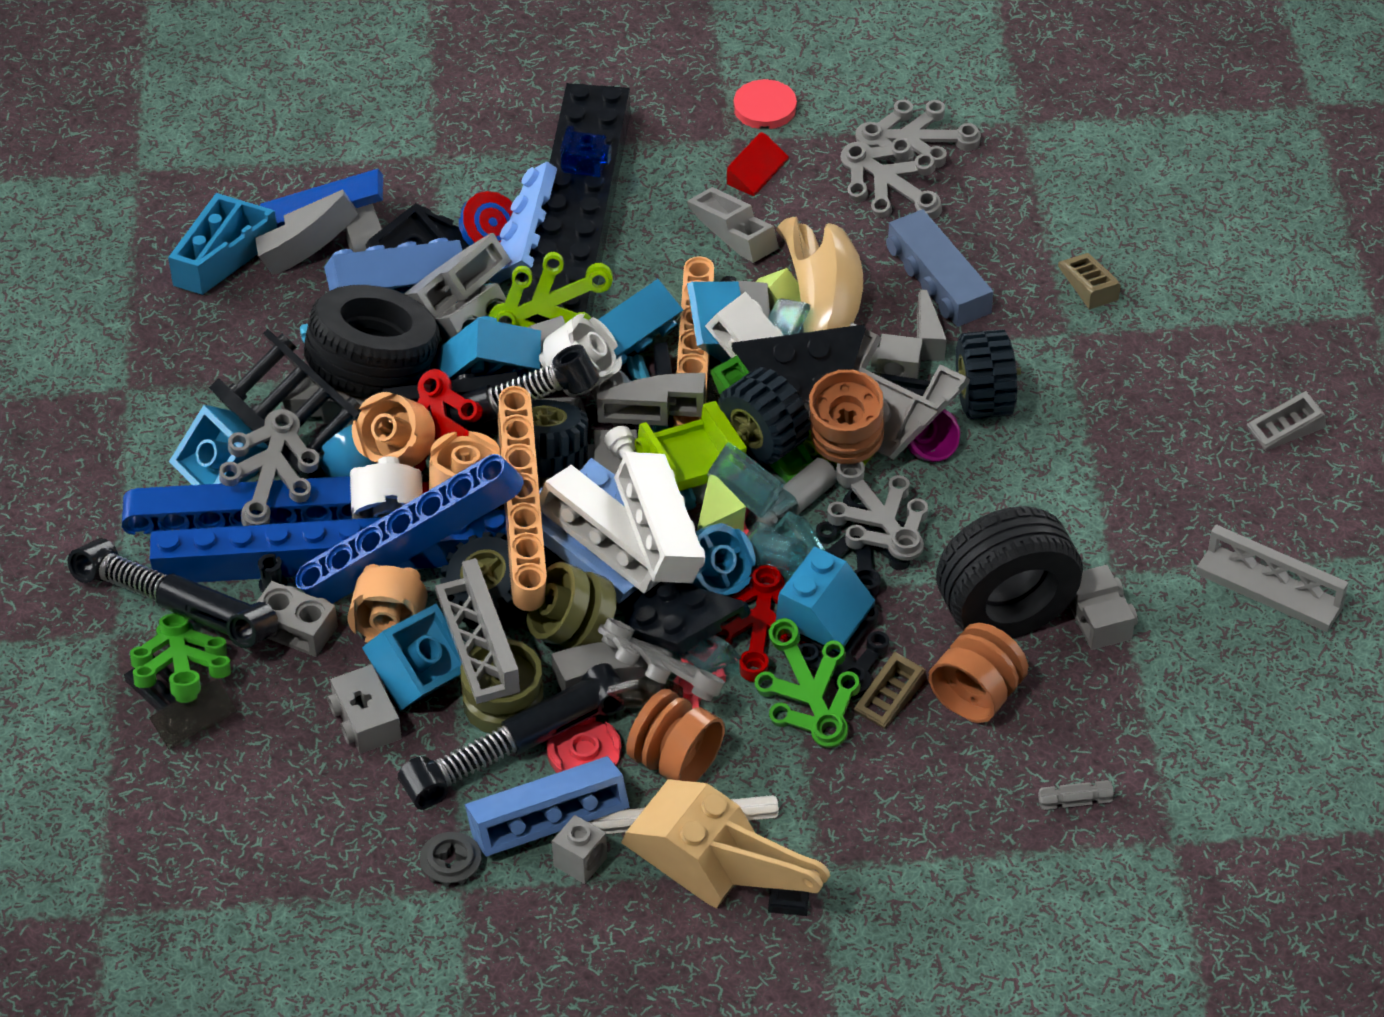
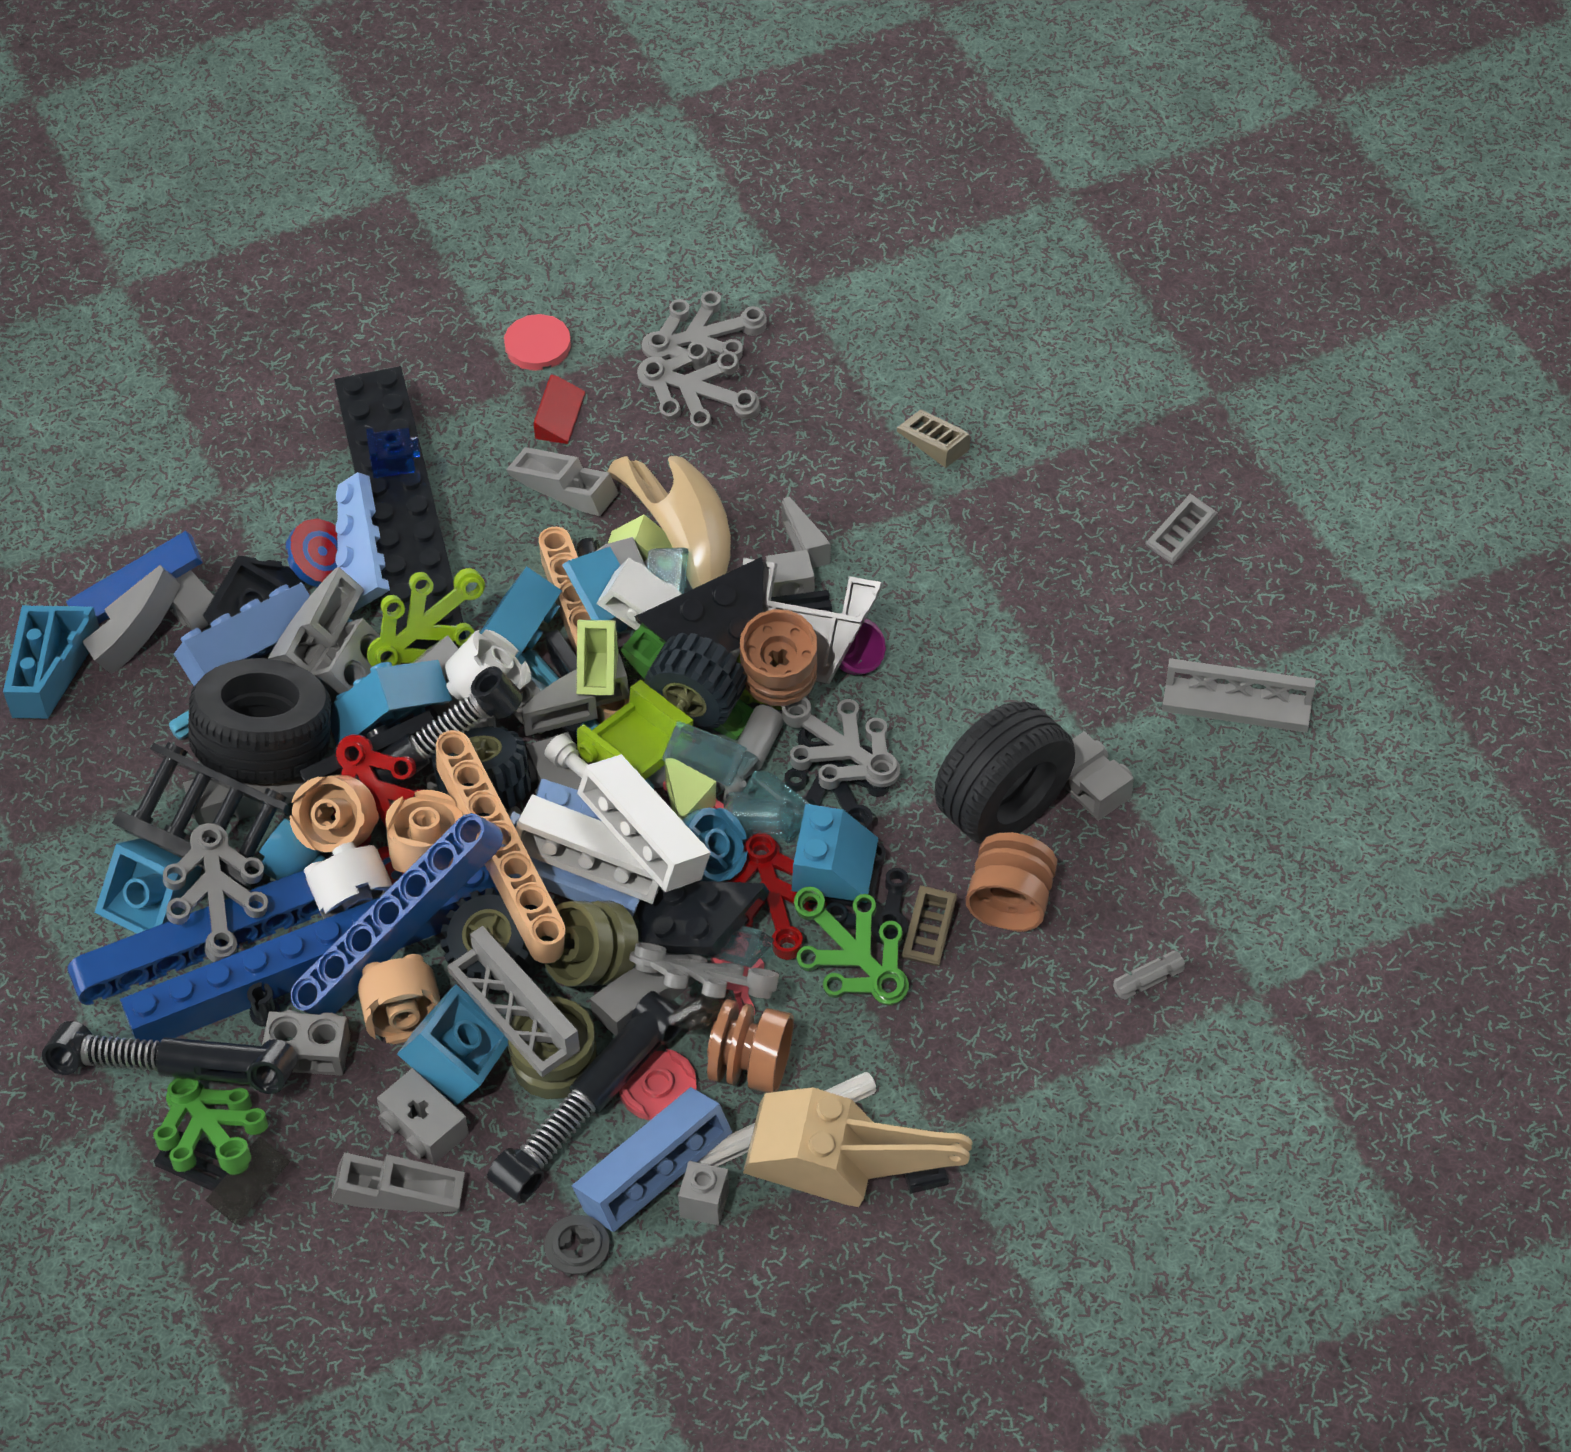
camera: 20 degrees left, 5 degrees up
(317, 758) = (397, 1184): none -> light grey slope
(680, 366) = (596, 657): none -> yellowish green slope
(939, 268) = (787, 468): sand blue brick -> none
(991, 367) = (888, 556): black wheel -> none

